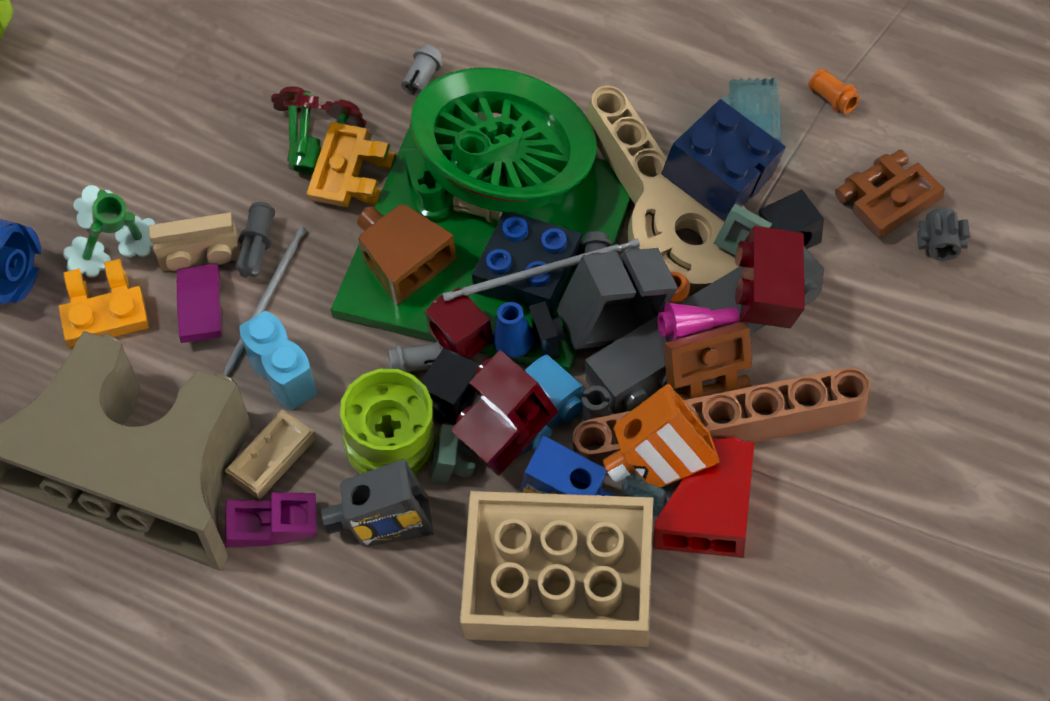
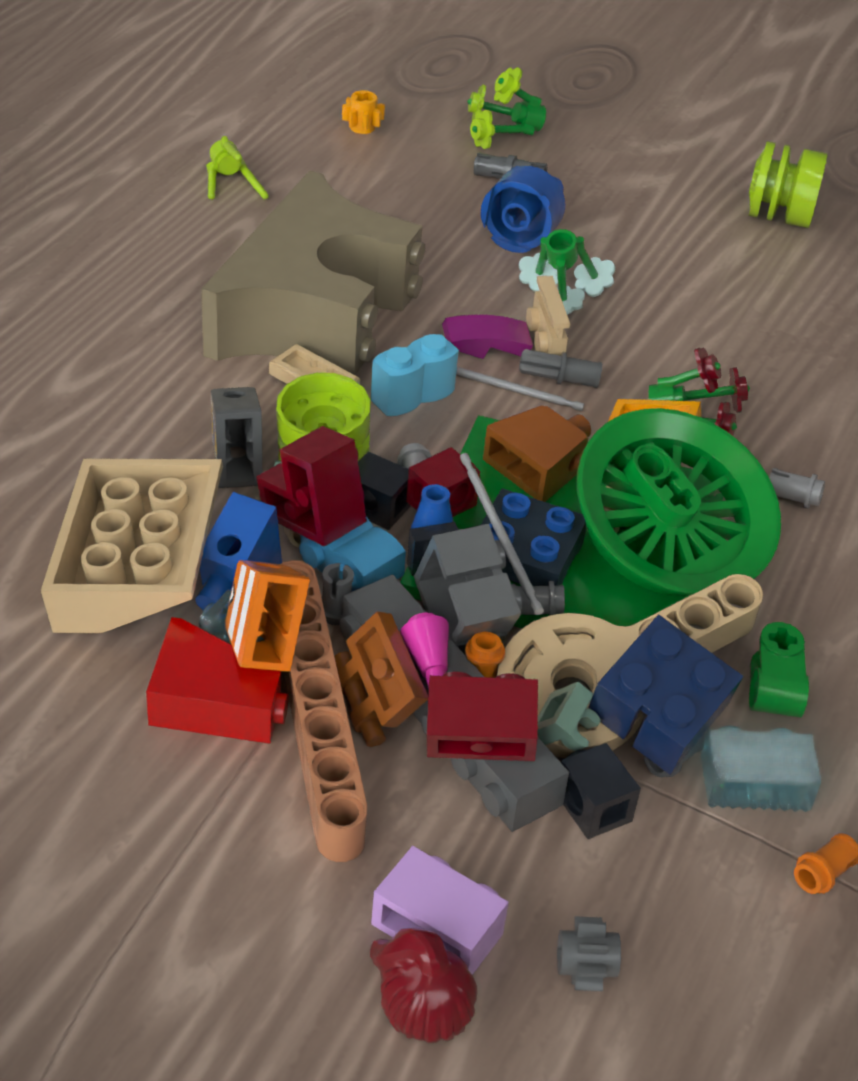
camera: 80 degrees right, 15 degrees down
(111, 313) = (477, 282): light orange plate -> none
(272, 522) = (246, 368): magenta slope -> none
(658, 100) = (779, 672): none -> green piece
(896, 200) = (652, 918): dark orange plate -> none
(919, 327) = (434, 897): none -> lavender piece
(983, 338) = (424, 985): none -> dark red hair

